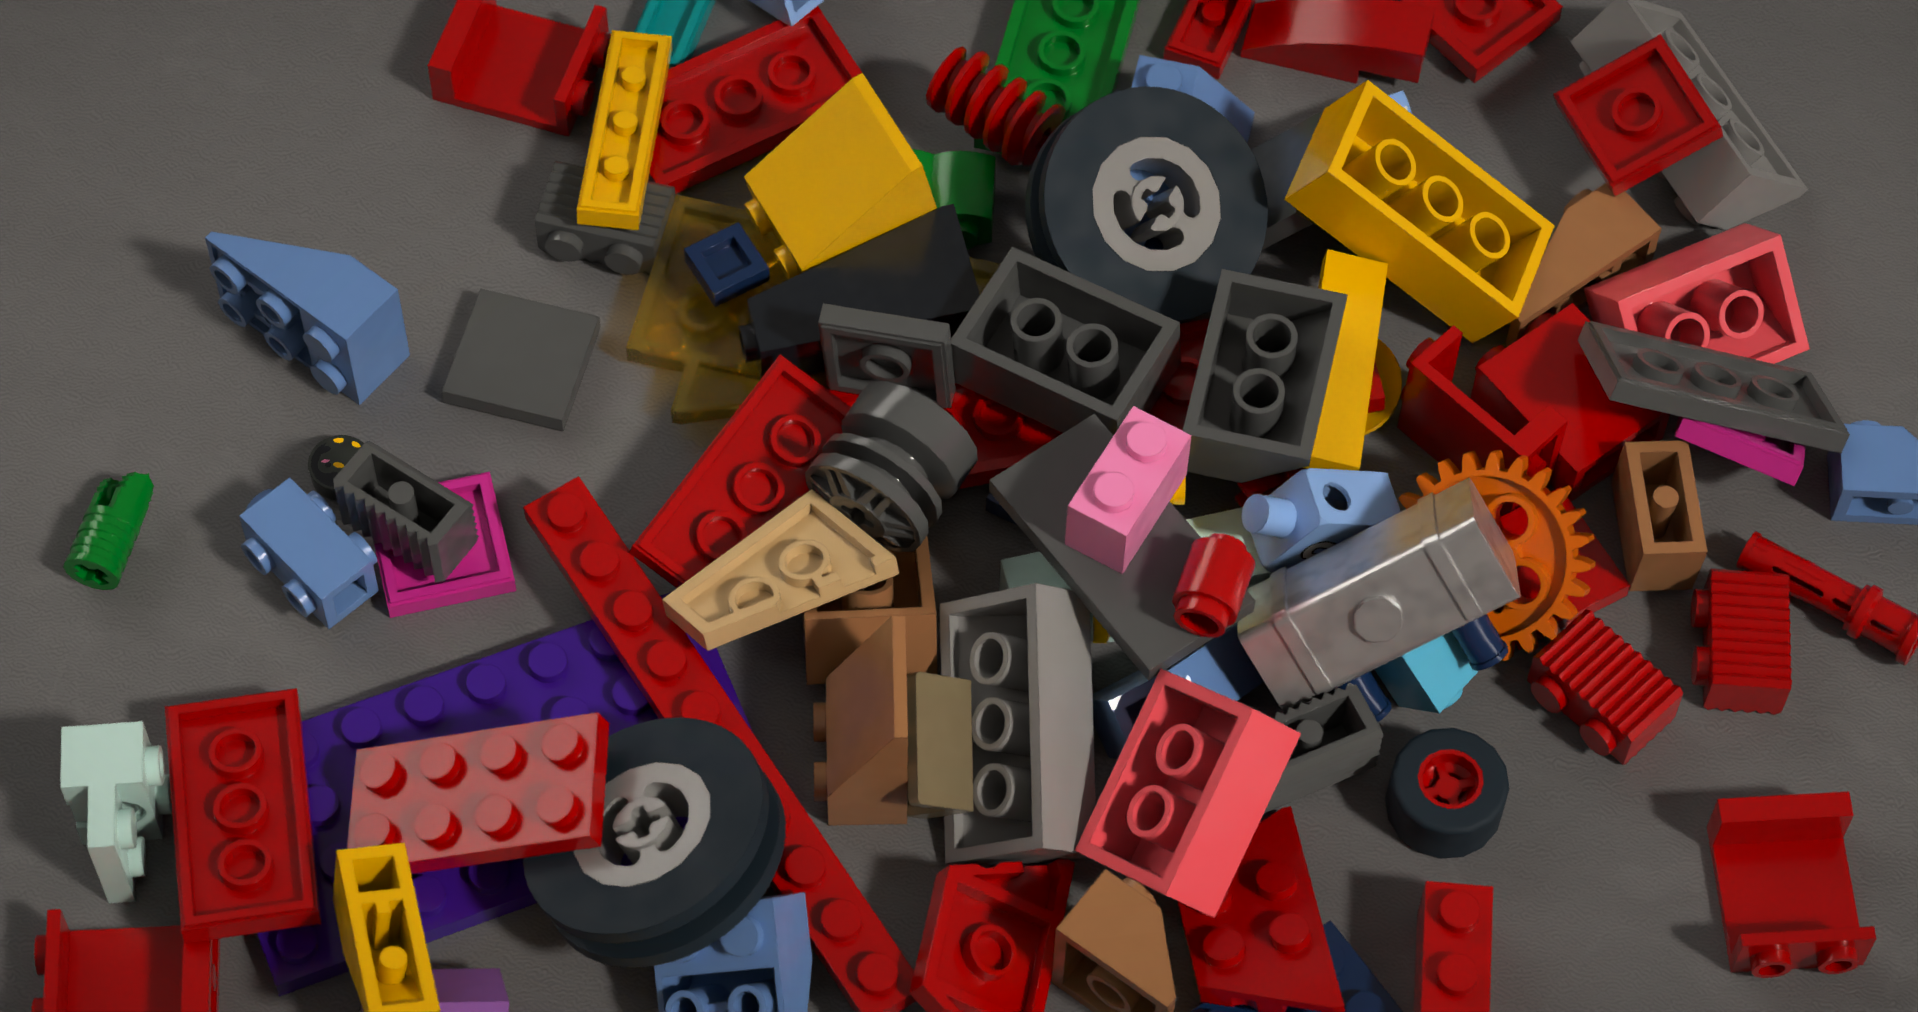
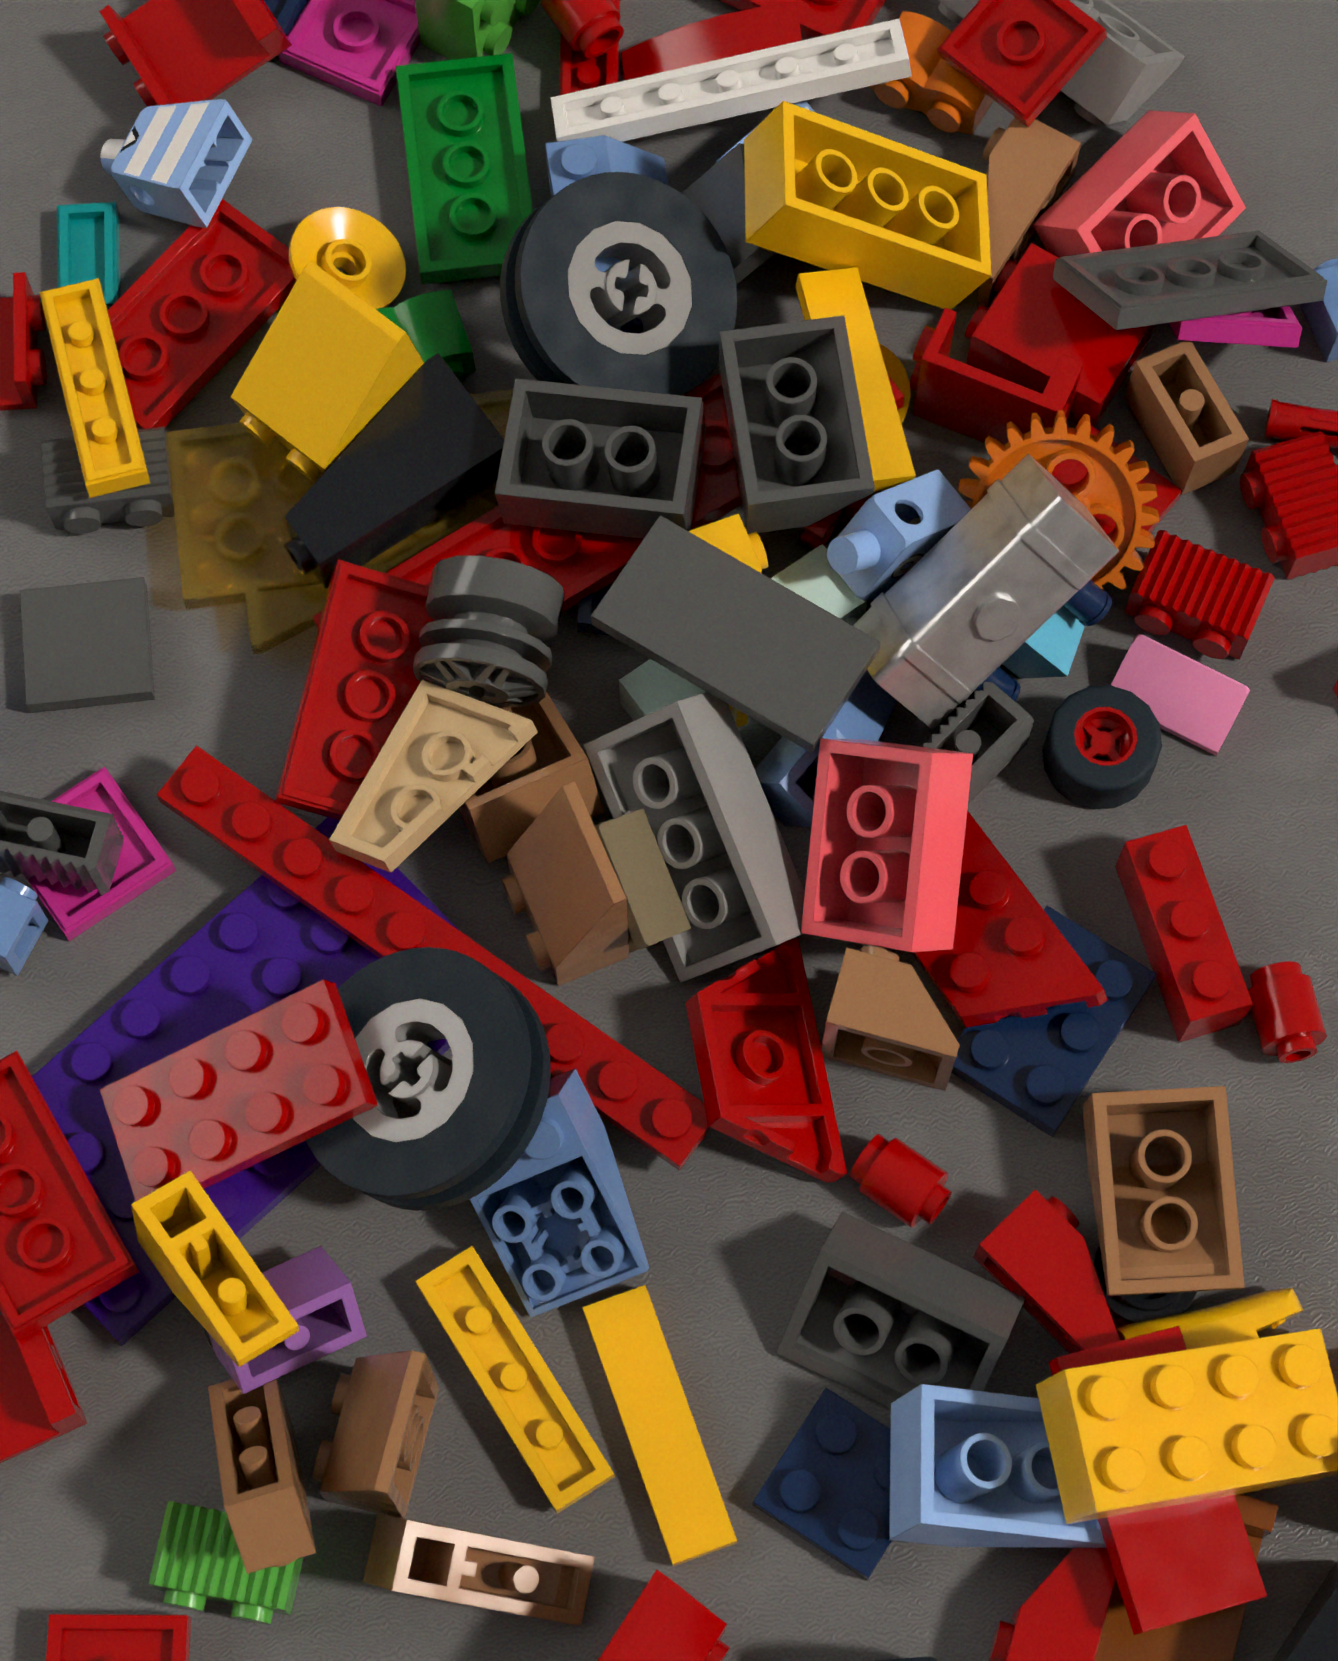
camera: 20 degrees left, 10 degrees up
(726, 264) = (246, 485): dark blue plate -> none
(886, 347) = (439, 524): dark grey tile -> none
(902, 78) = (357, 245): none -> yellow dish
(991, 109) = (433, 243): red piece -> none
(1127, 489) = (728, 581): bright pink brick -> none
(1212, 585) = (842, 644): red brick -> none
(1344, 62) = (735, 85): none -> white plate
(1525, 116) = (935, 86): none -> orange brick
(1550, 773) = (1182, 693): none -> bright pink slope

